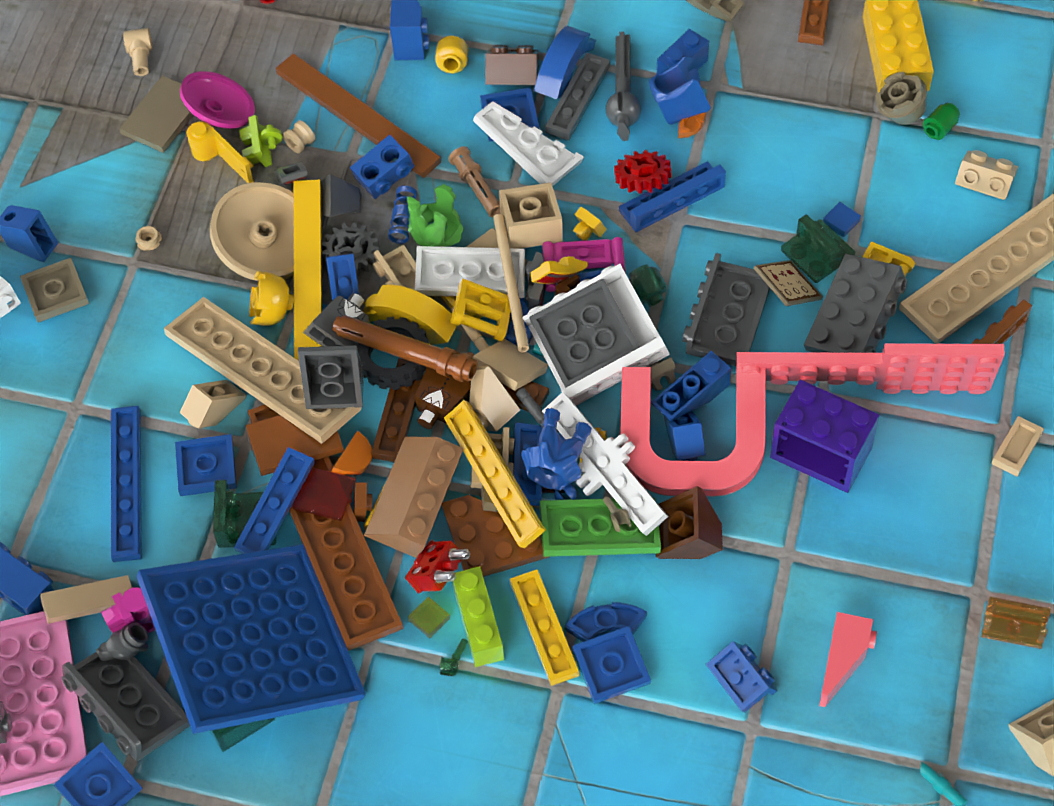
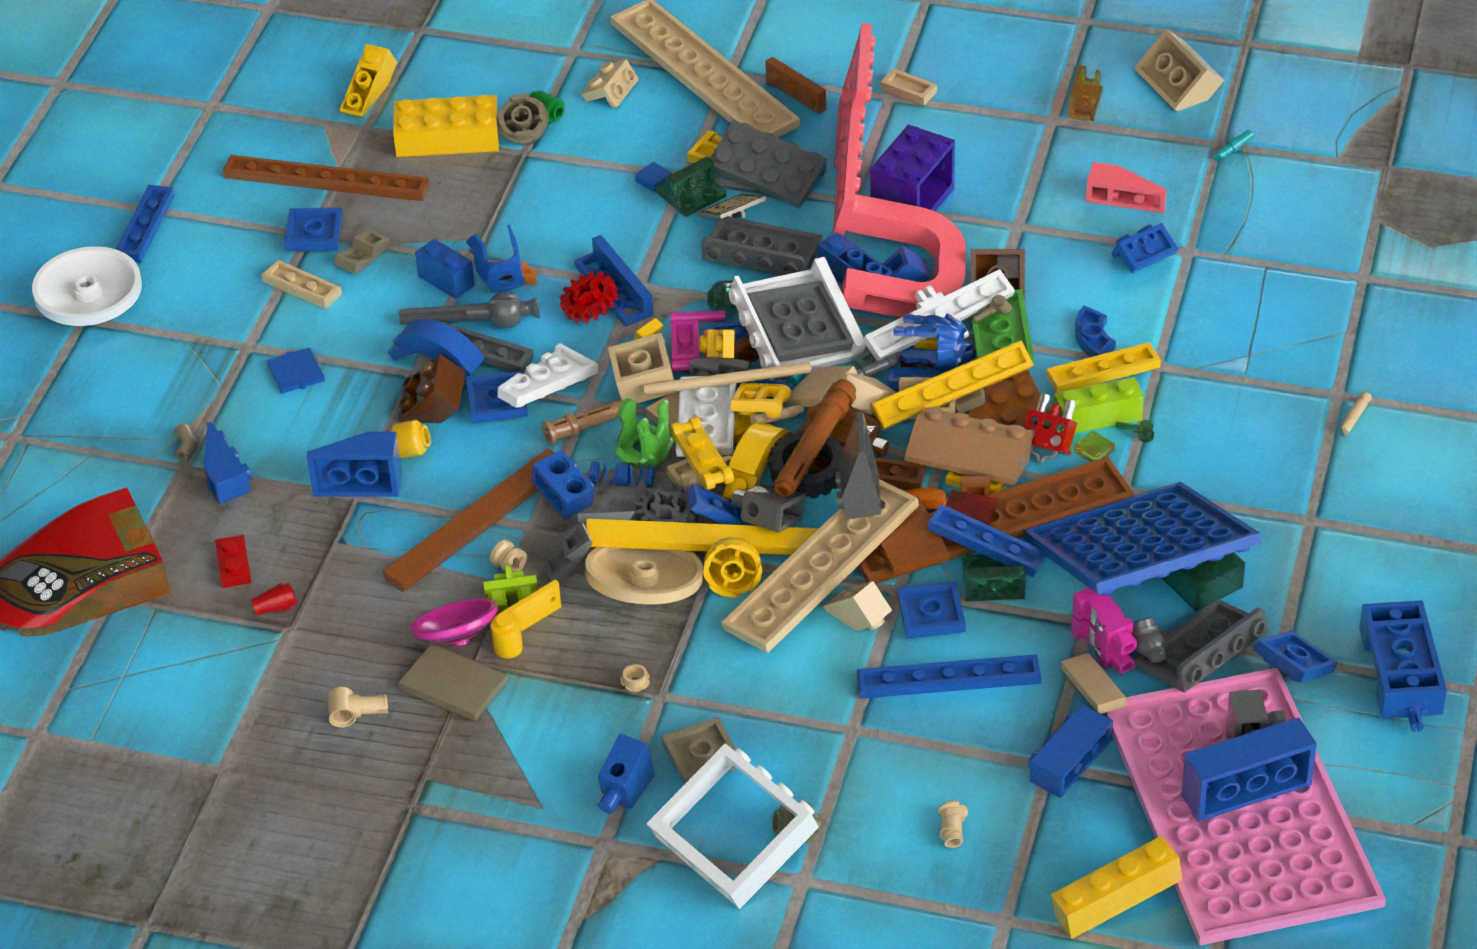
camera: 90 degrees left, 15 degrees down
(397, 261) = (701, 453): none -> yellow plate
(611, 664) = (1140, 323): blue plate -> none

